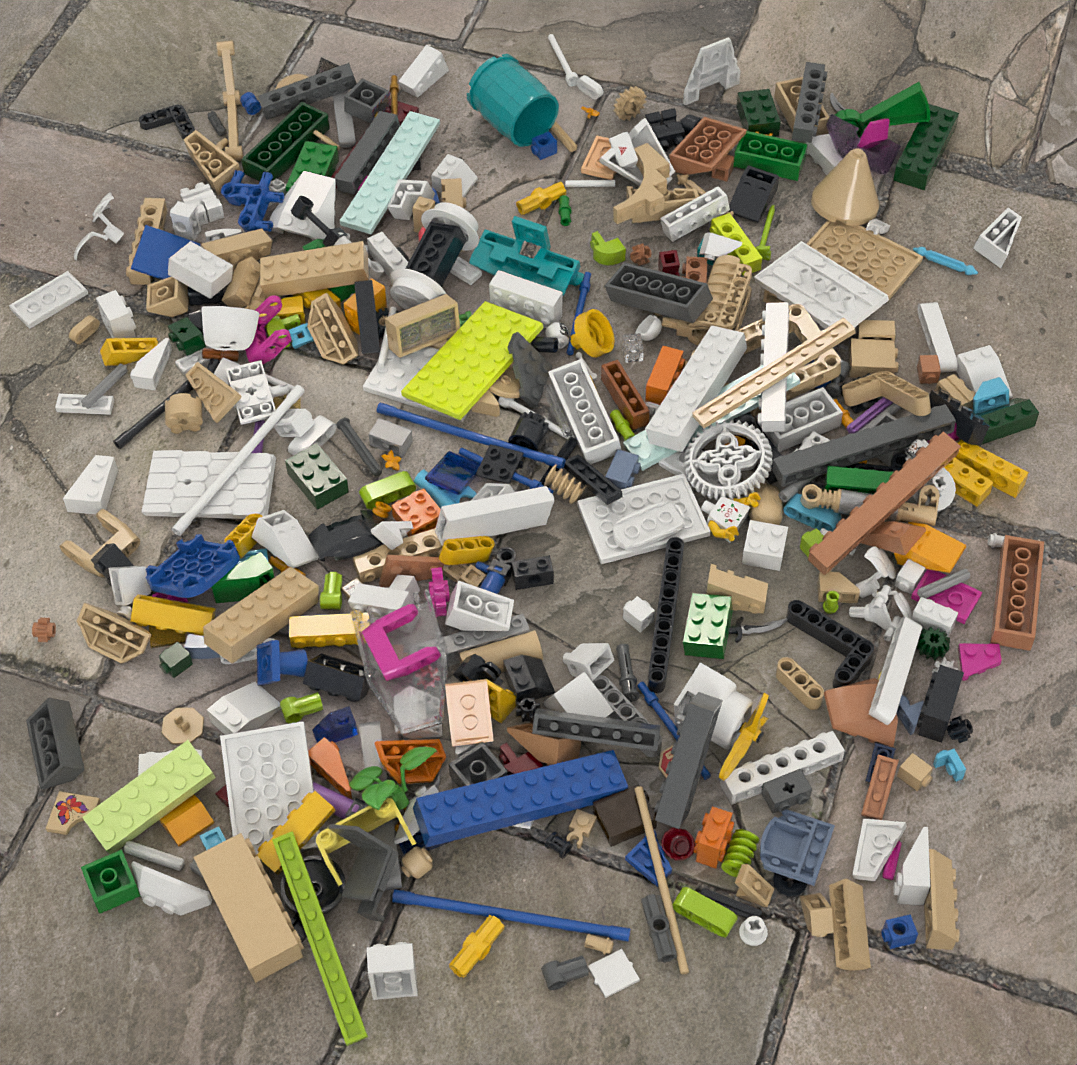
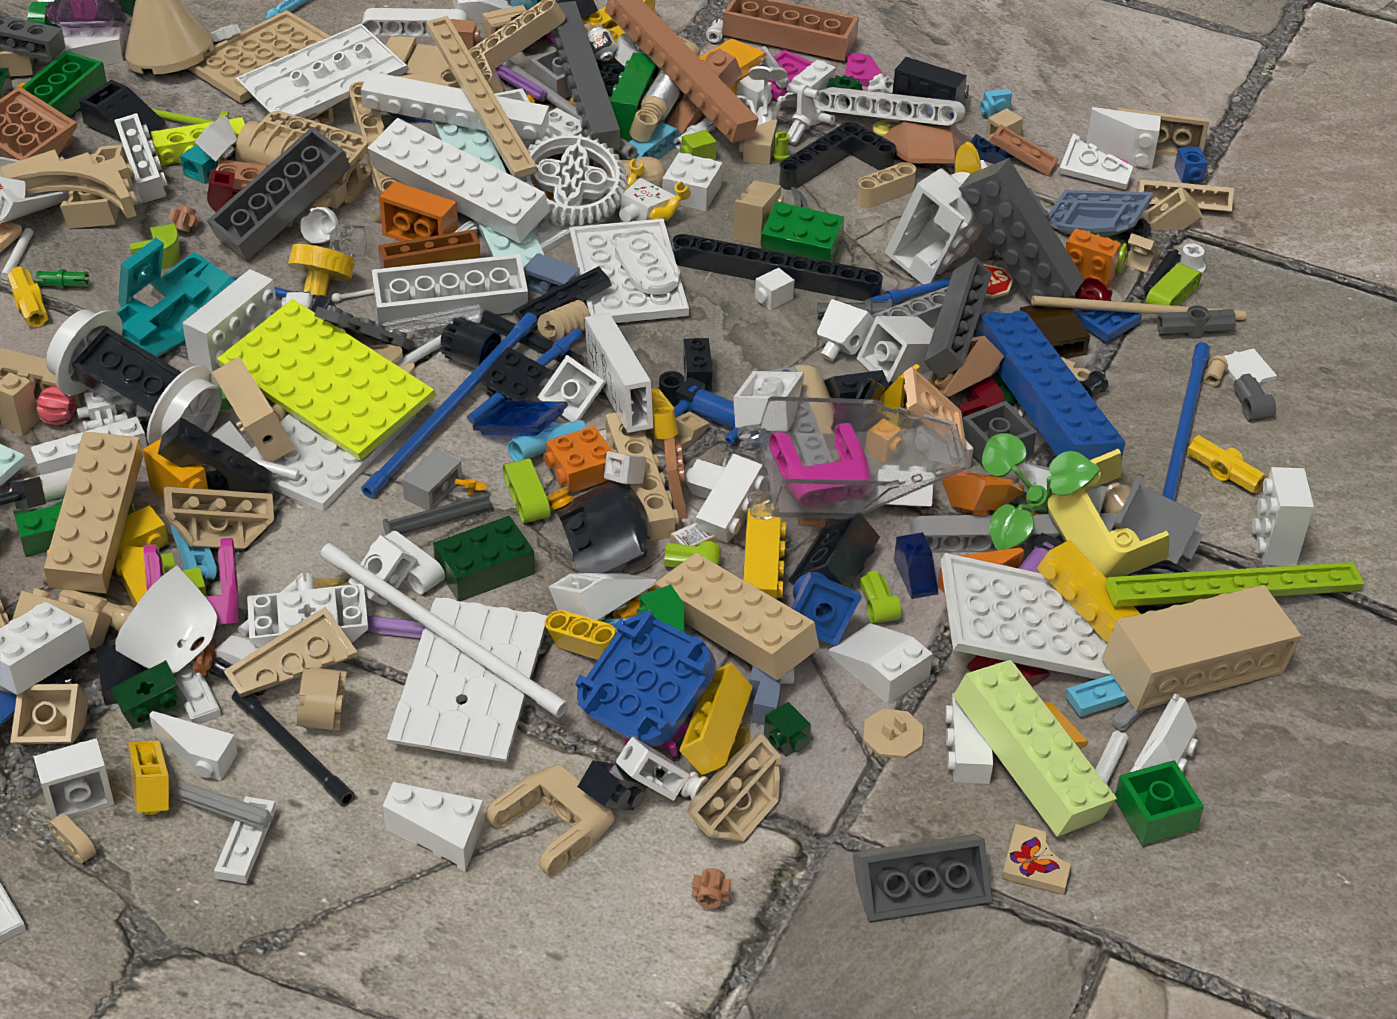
camera: 85 degrees left, 10 degrees down
(439, 591) = (718, 440): dark pink gear -> none

